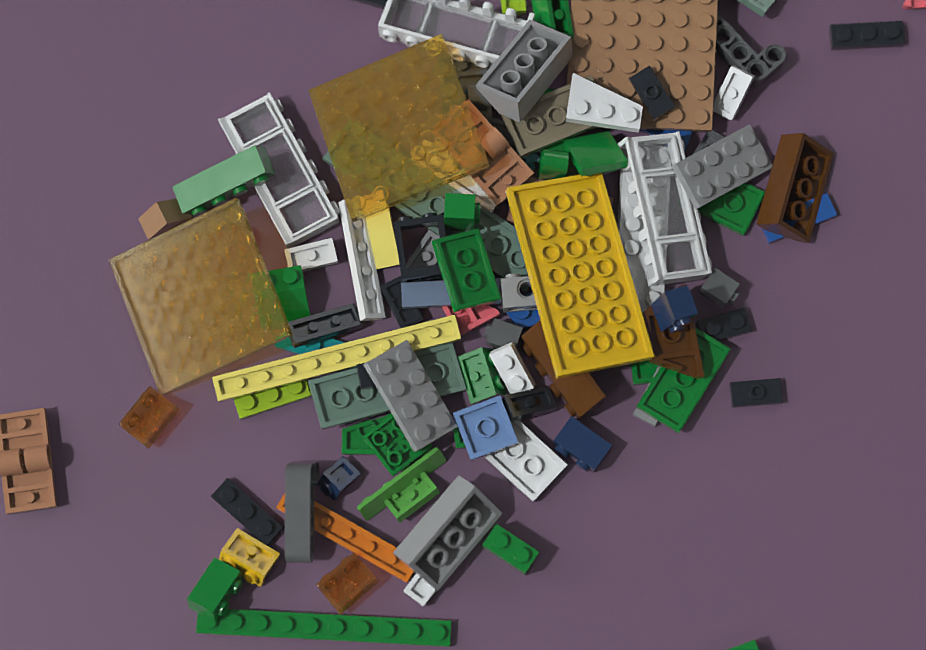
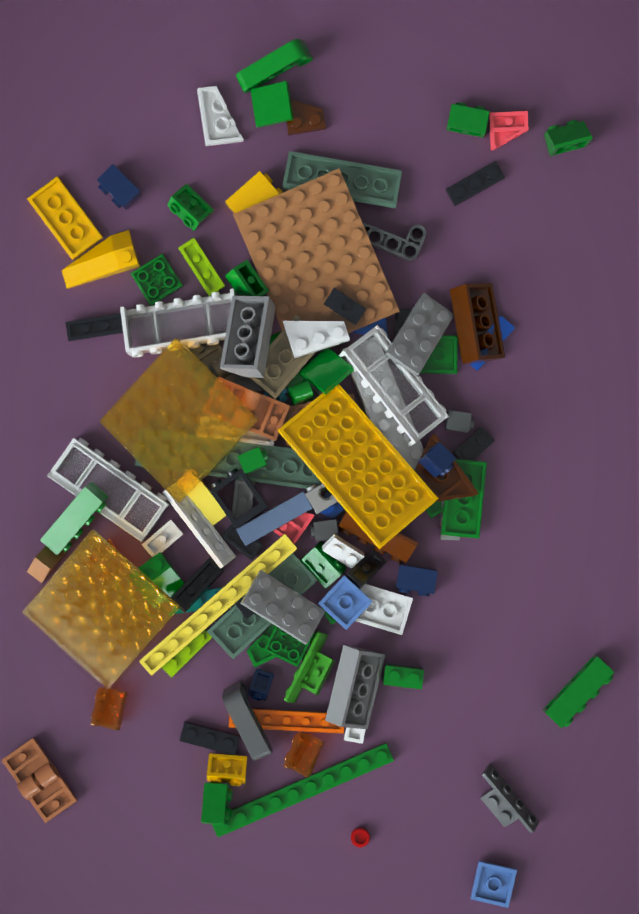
camera: 25 degrees left, 10 degrees up
(466, 270) = (277, 500): green tile -> none
(732, 92) = (401, 275): white plate -> none
(755, 393) = (518, 482): black plate -> none

